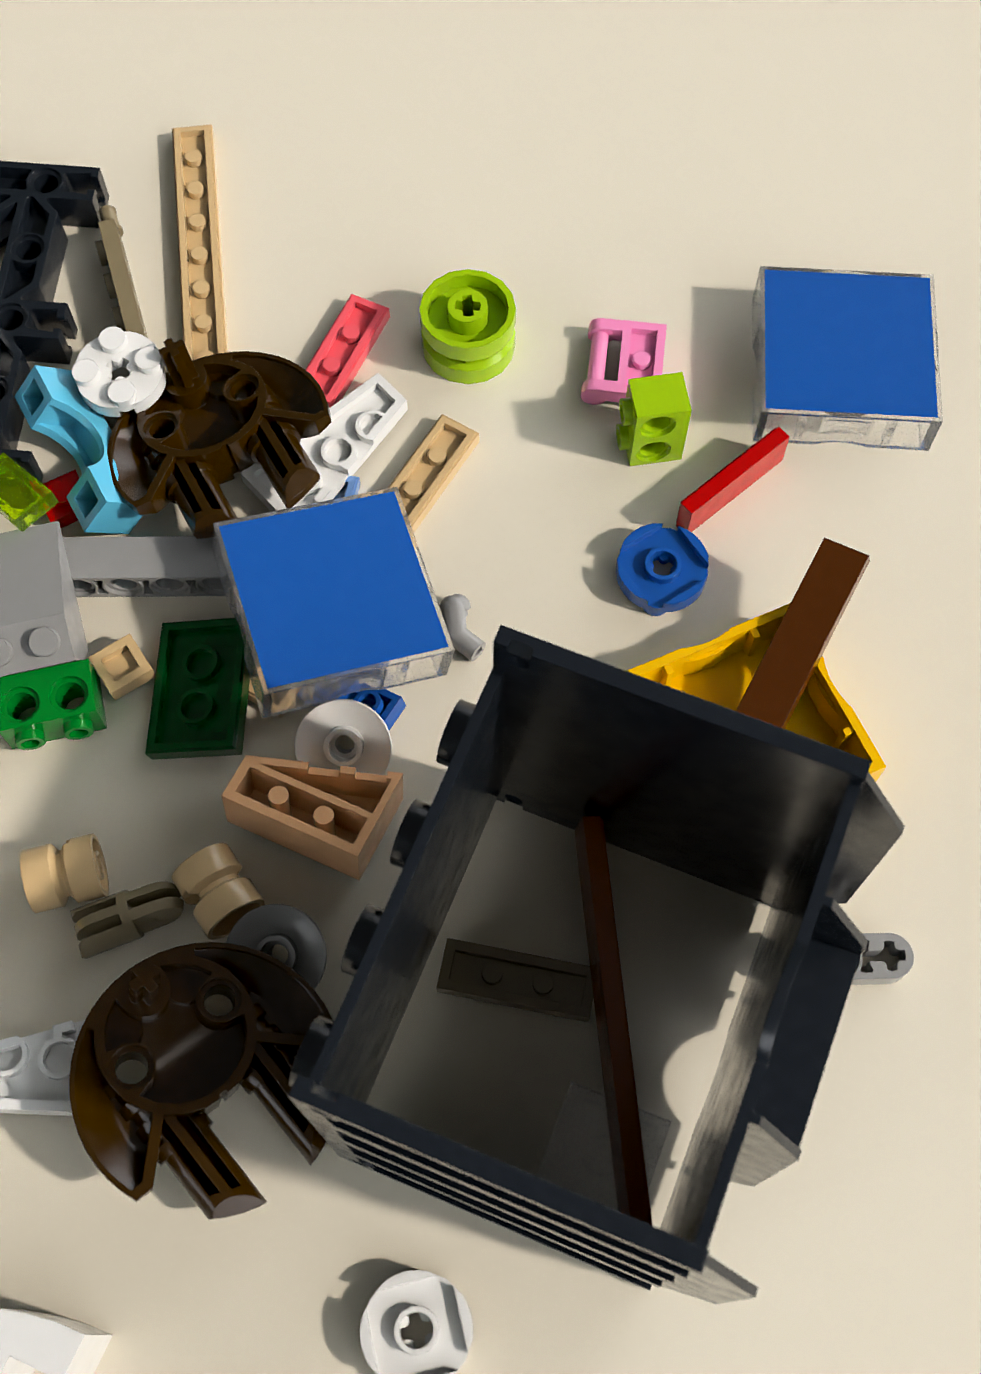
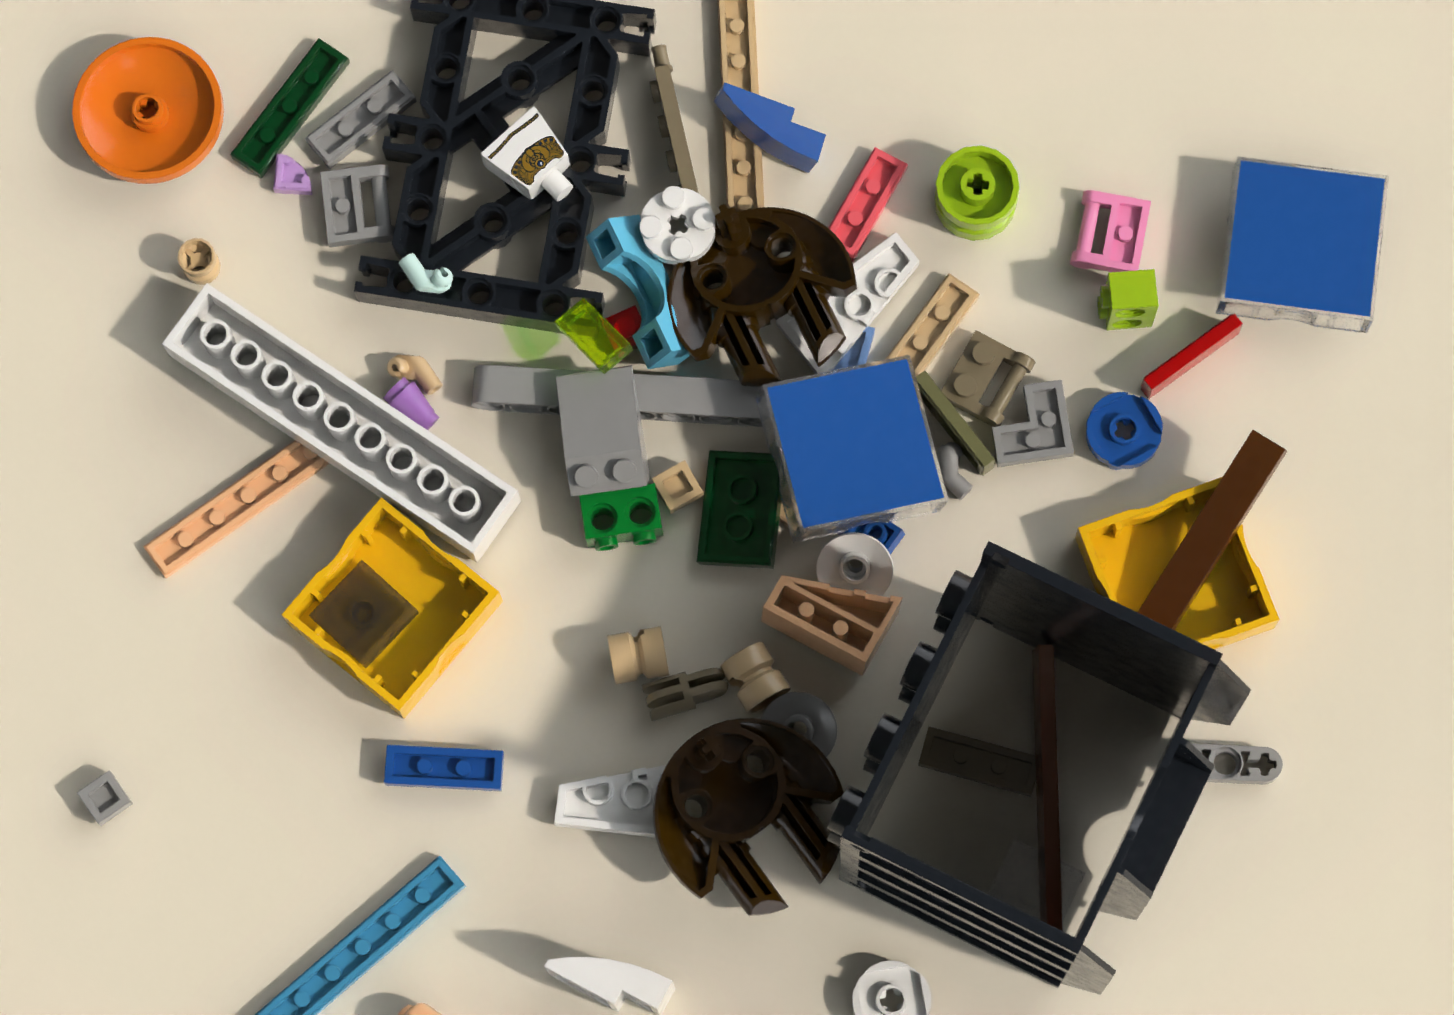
camera: 10 degrees right, 10 degrees up
(230, 273) = (770, 126): none -> blue slope
(460, 573) = (954, 424): none -> olive tile
(481, 517) = (976, 371): none -> dark tan plate
(565, 580) = (1043, 436): none -> light grey plate

